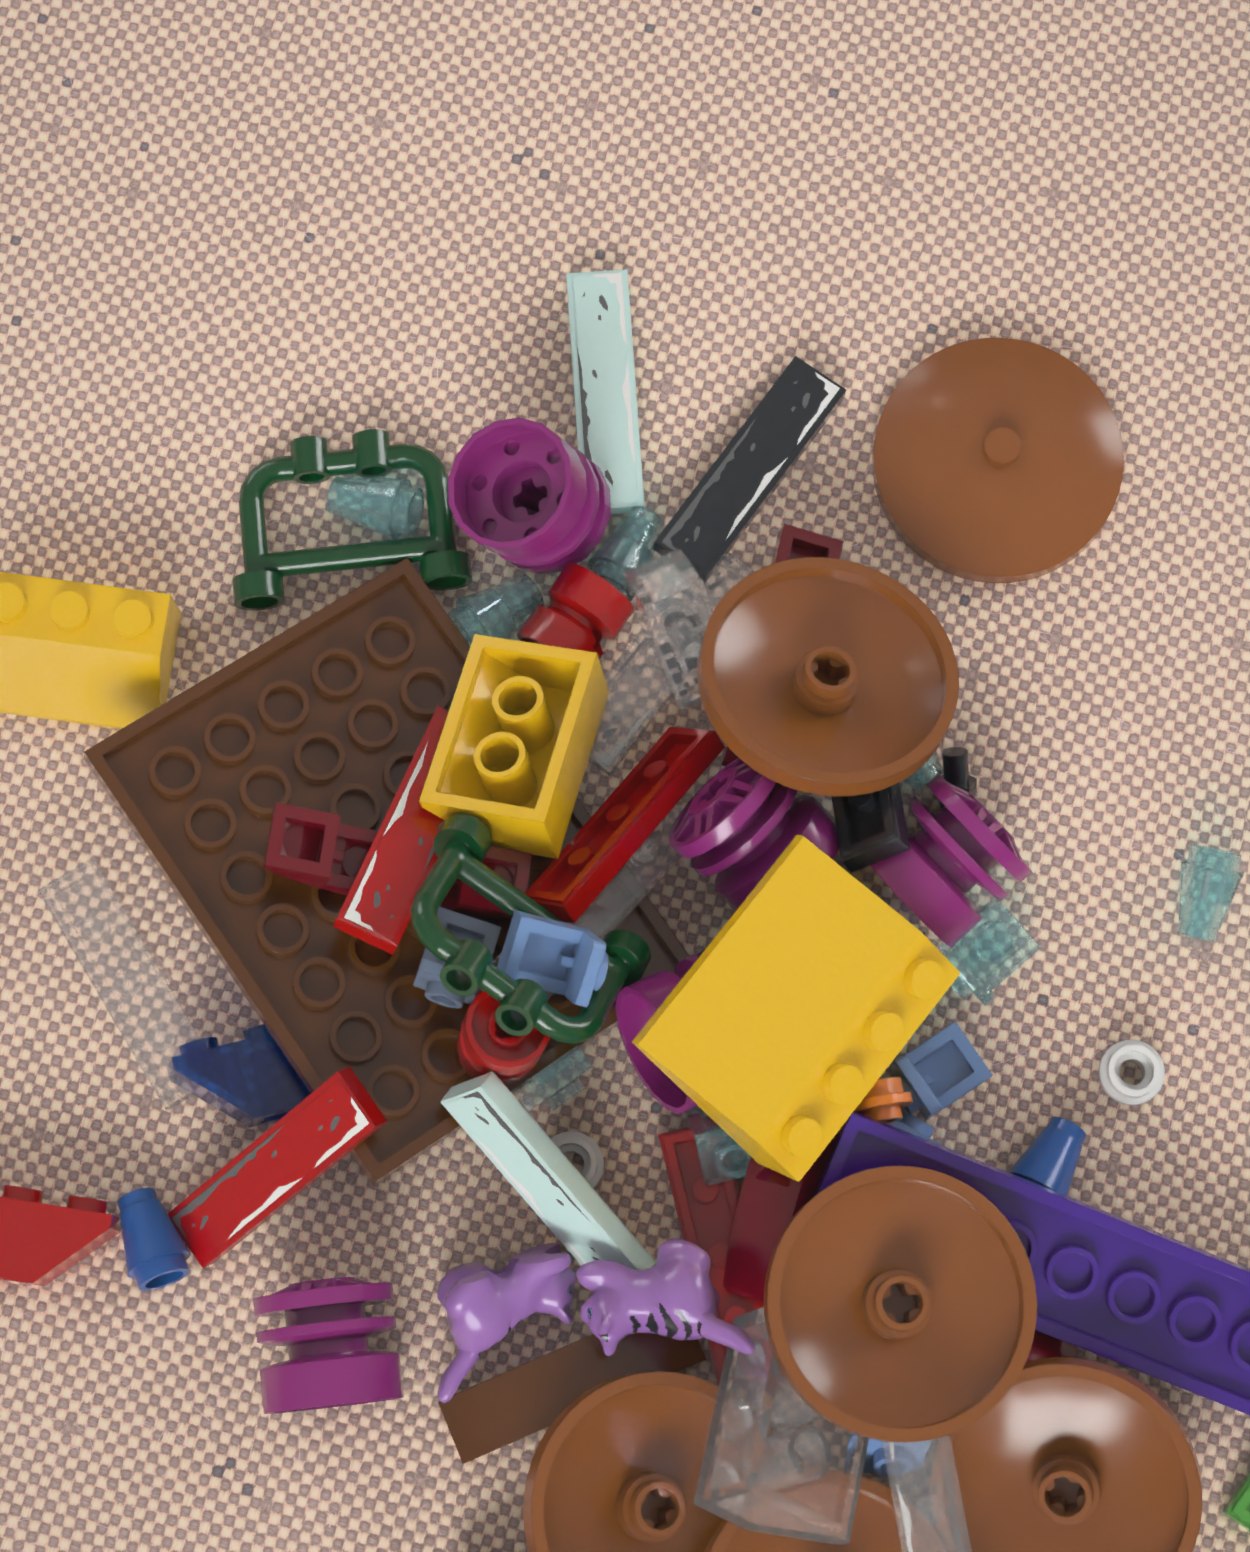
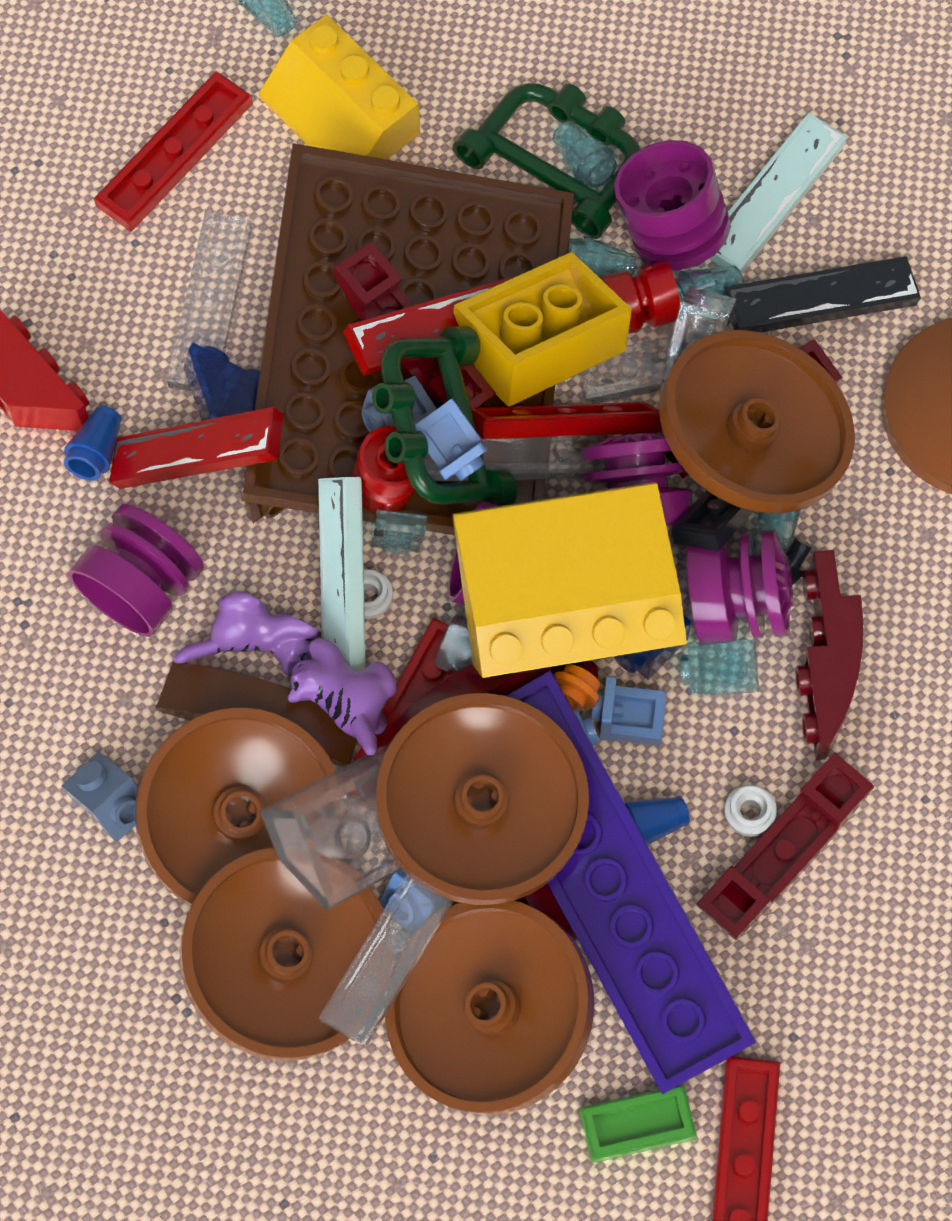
camera: 40 degrees right, 10 degrees down
(1097, 865) = (834, 659): none -> dark red slope
(1198, 1085) = (786, 847): none -> dark red slope
(1207, 890) = (891, 742): clear light blue cone -> none

